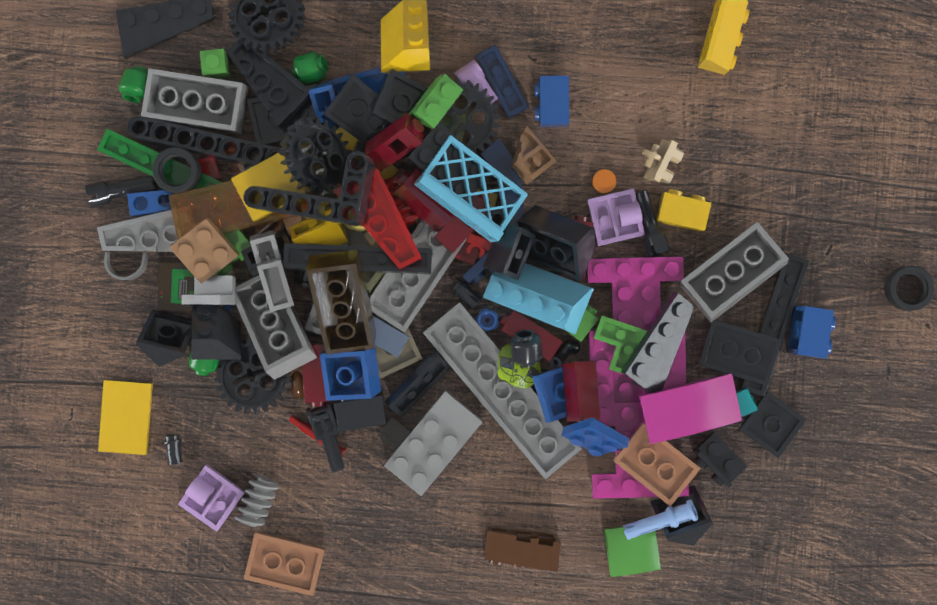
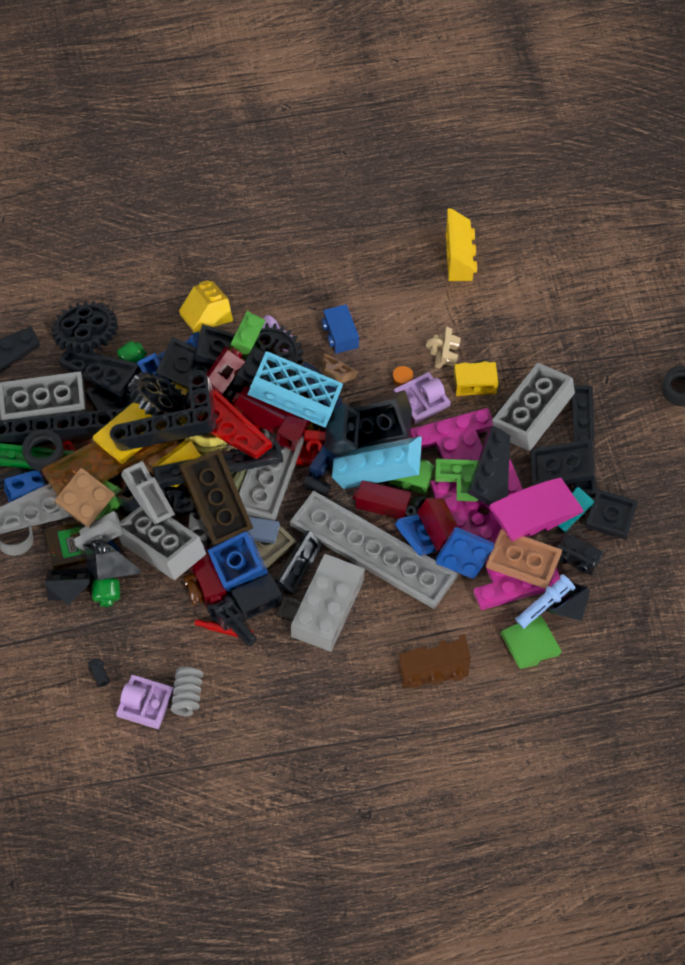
camera: 20 degrees left, 30 degrees down
(125, 417) = (48, 660): yellow tile -> none
(215, 64) = (50, 366): bright green brick -> none
(260, 396) = (152, 593): black gear -> none
(284, 563) = (227, 737): nougat plate -> none
(492, 324) = (342, 496): blue plate -> none
(501, 81) = (308, 339): dark blue tile -> none
(513, 372) = (379, 522): lime dish -> none
(526, 348) = (382, 499): black head -> none
(654, 240) = (459, 403): black piece -> none
(811, 331) = (613, 432): blue brick -> none

